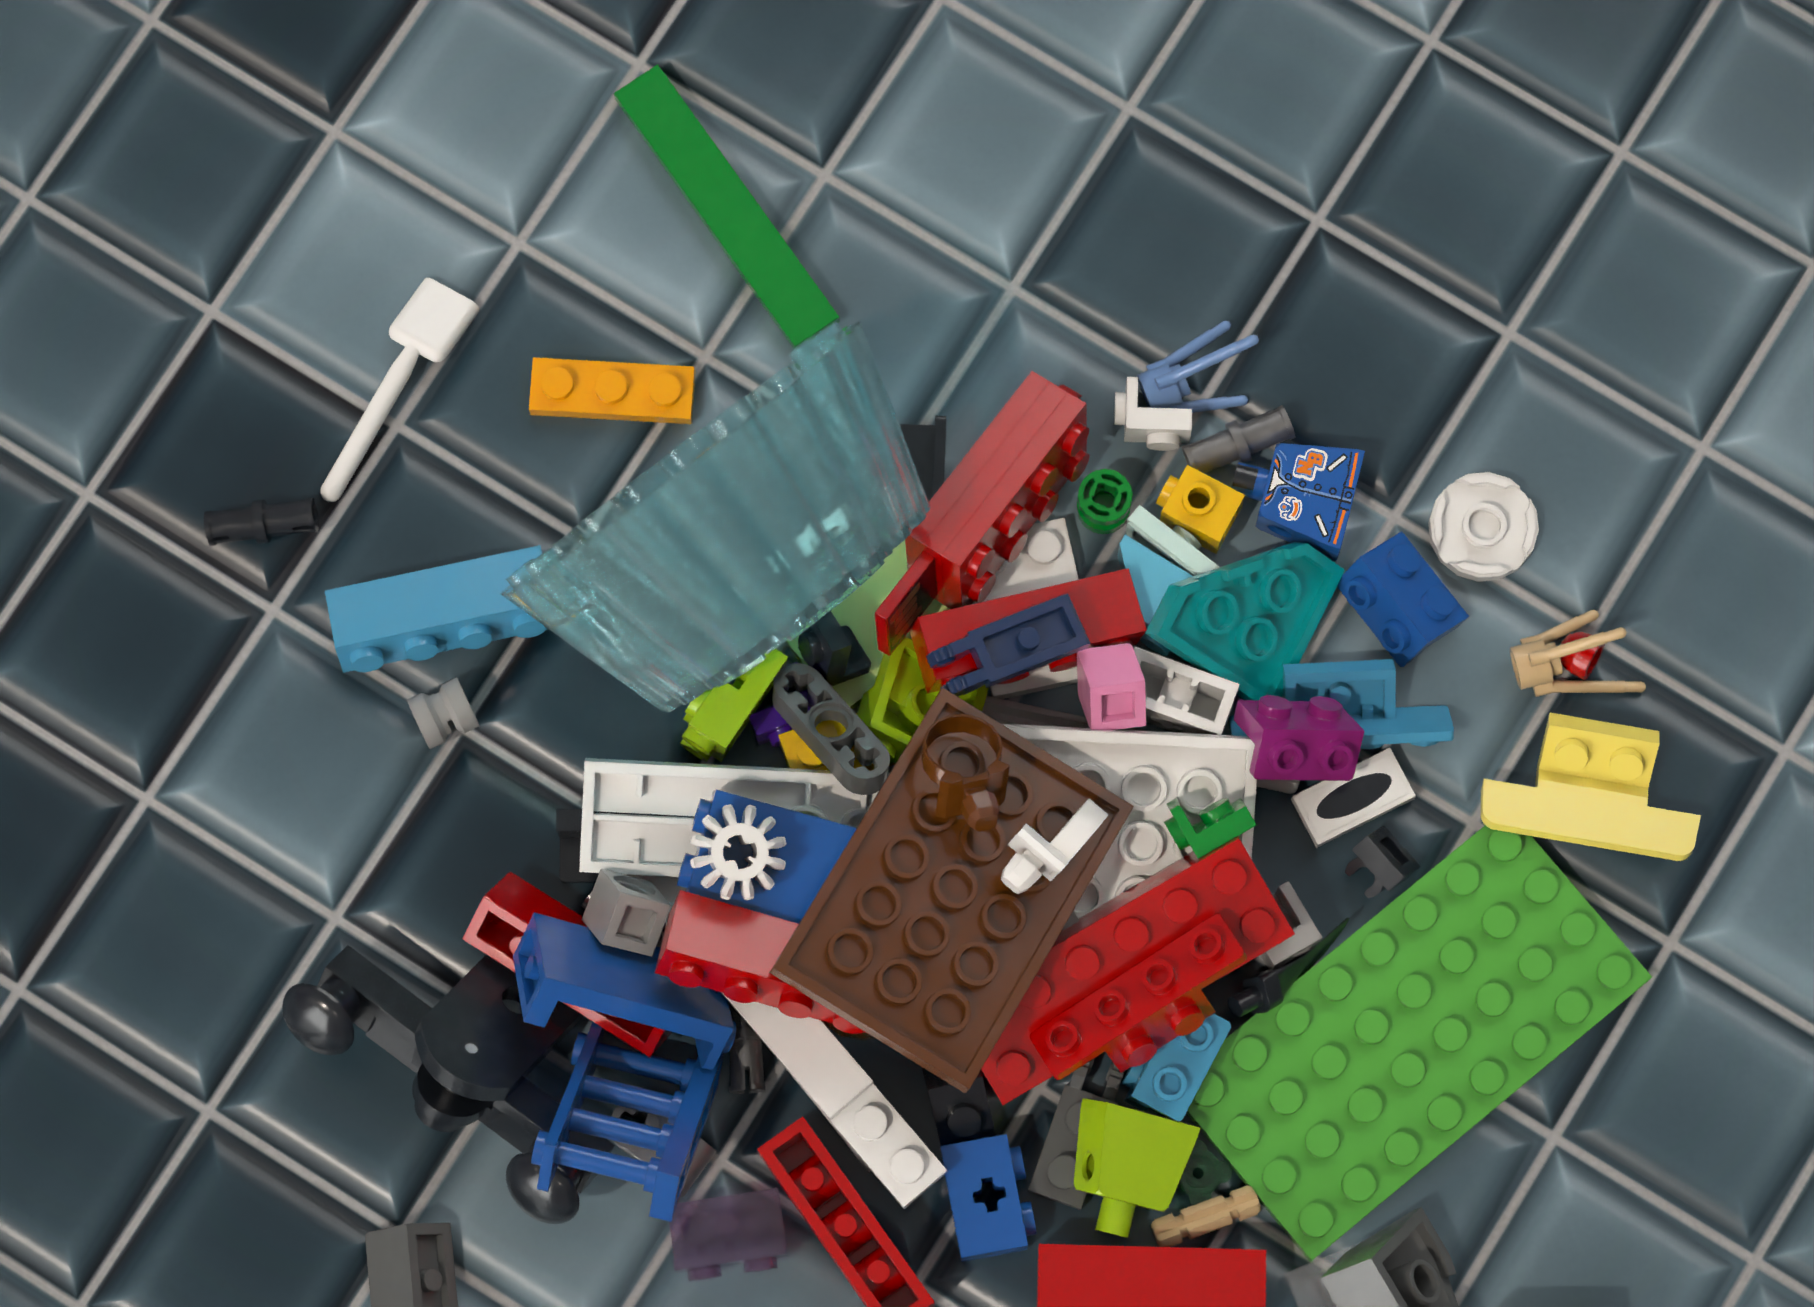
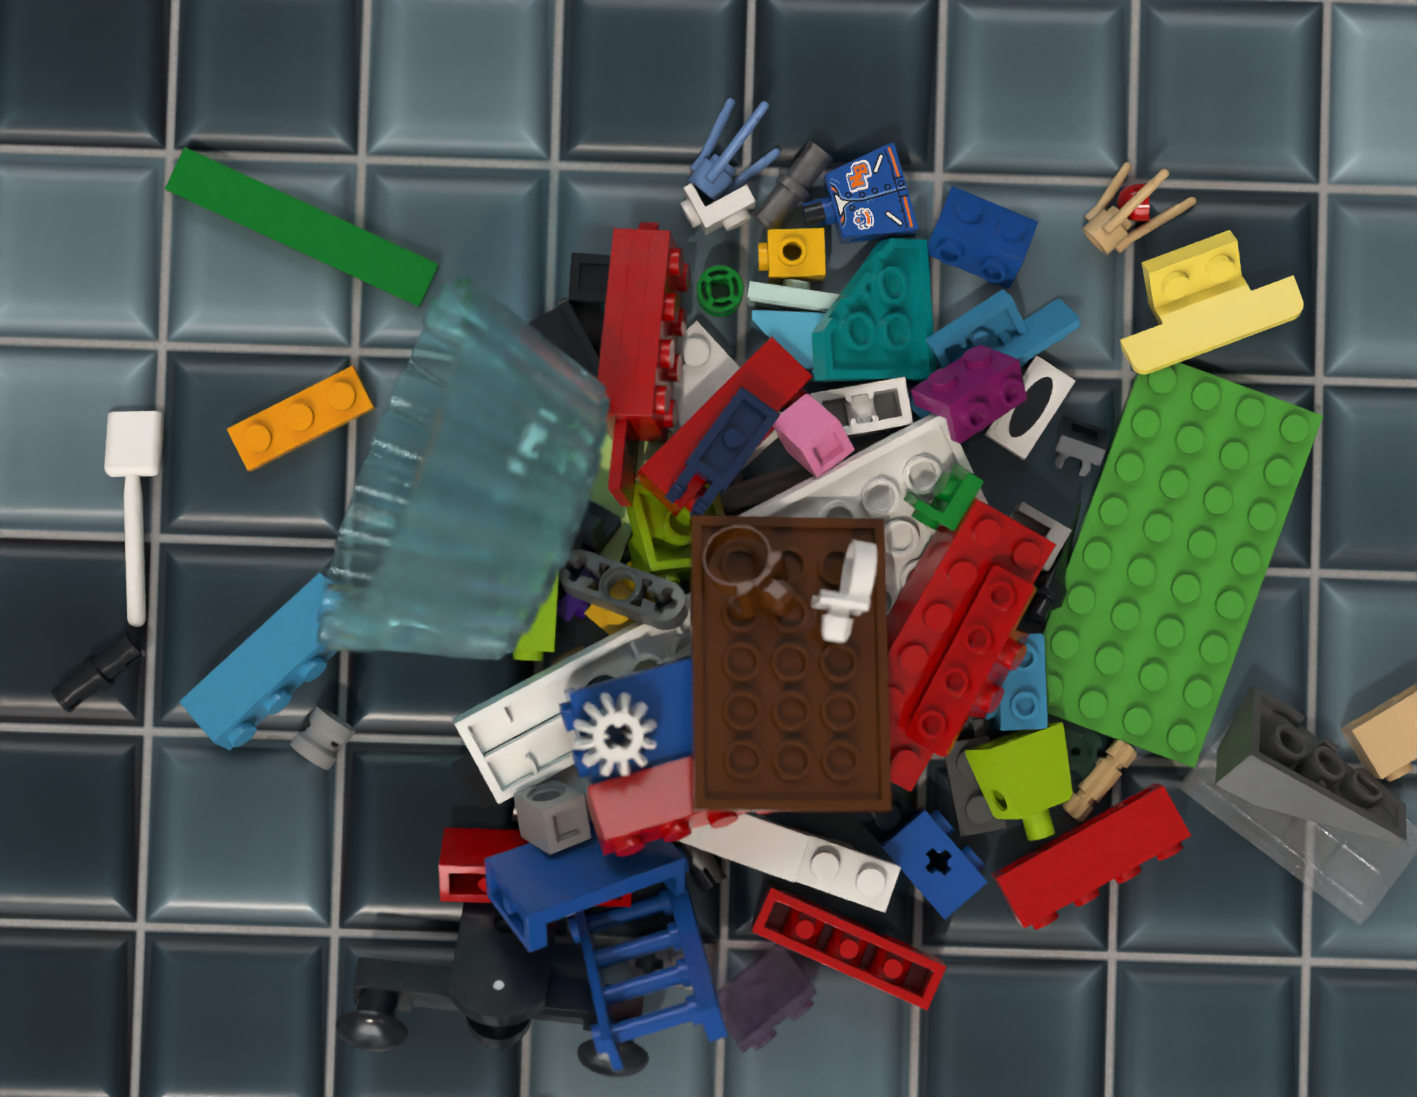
camera: 35 degrees left, 10 degrees up
(976, 410) = (588, 278): none -> black panel
(1483, 527) = (1009, 146): white tile -> none

